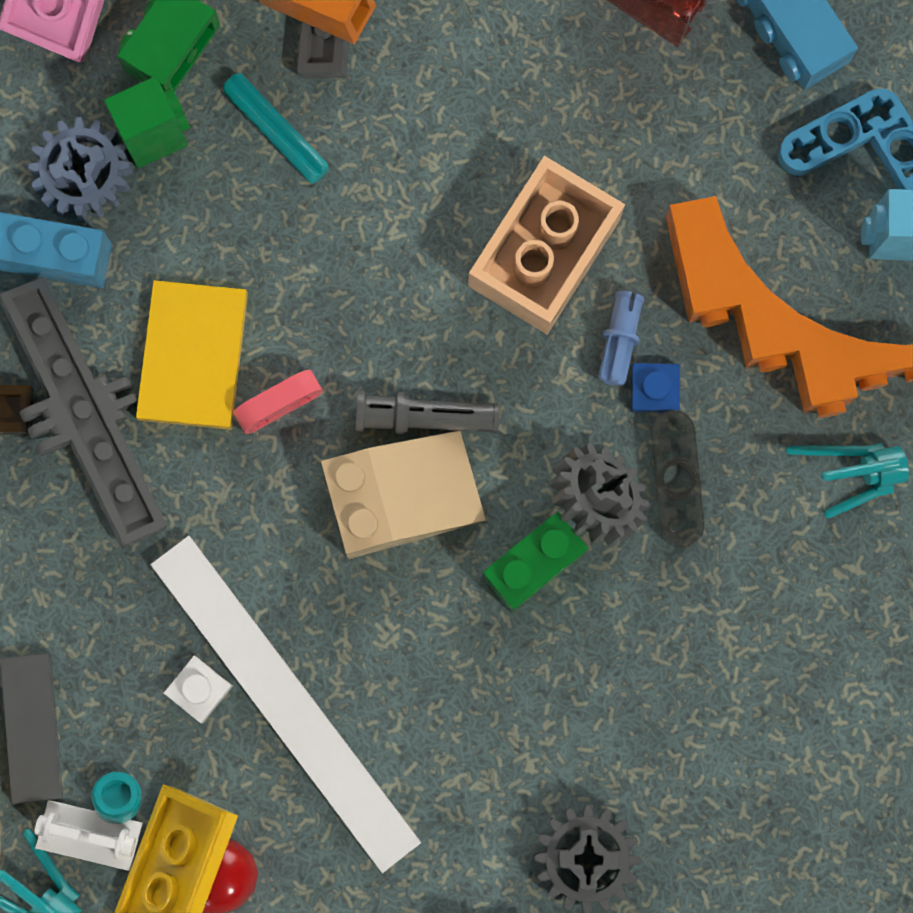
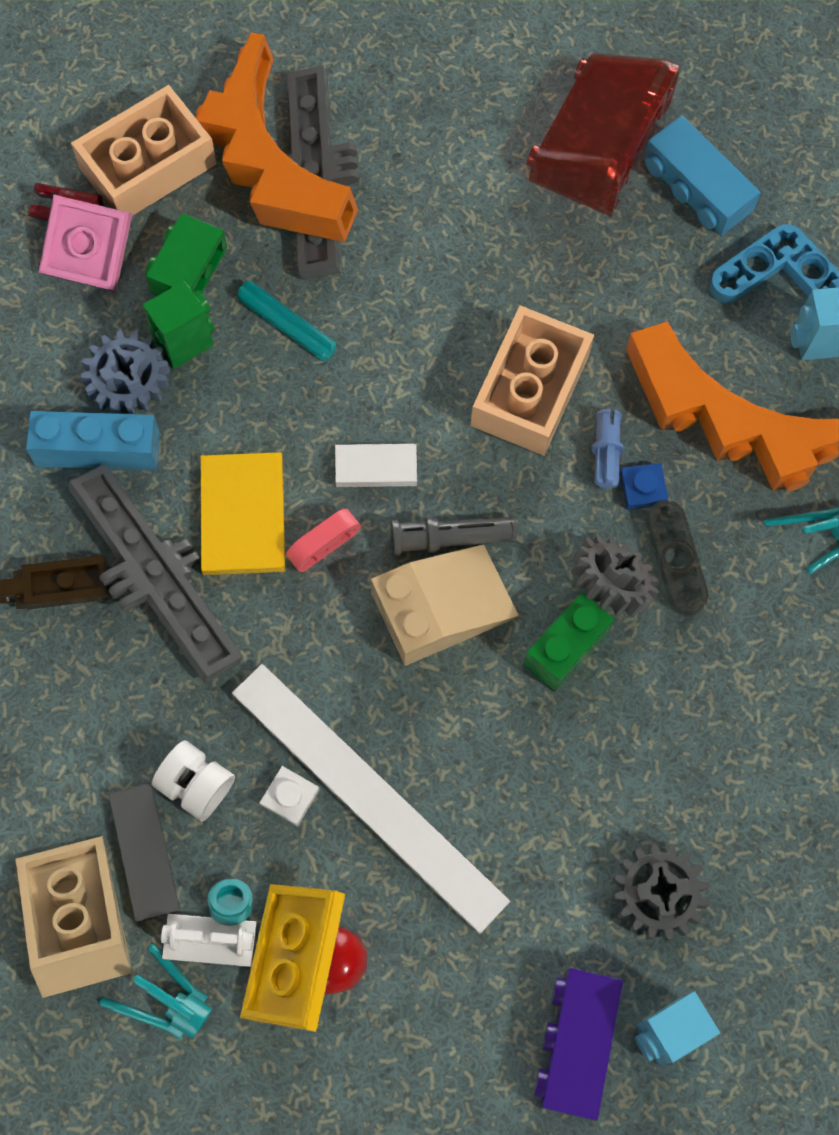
camera: 10 degrees left, 10 degrees down
(102, 674) = (203, 791): none -> white wheel
(352, 319) = (376, 465): none -> white tile

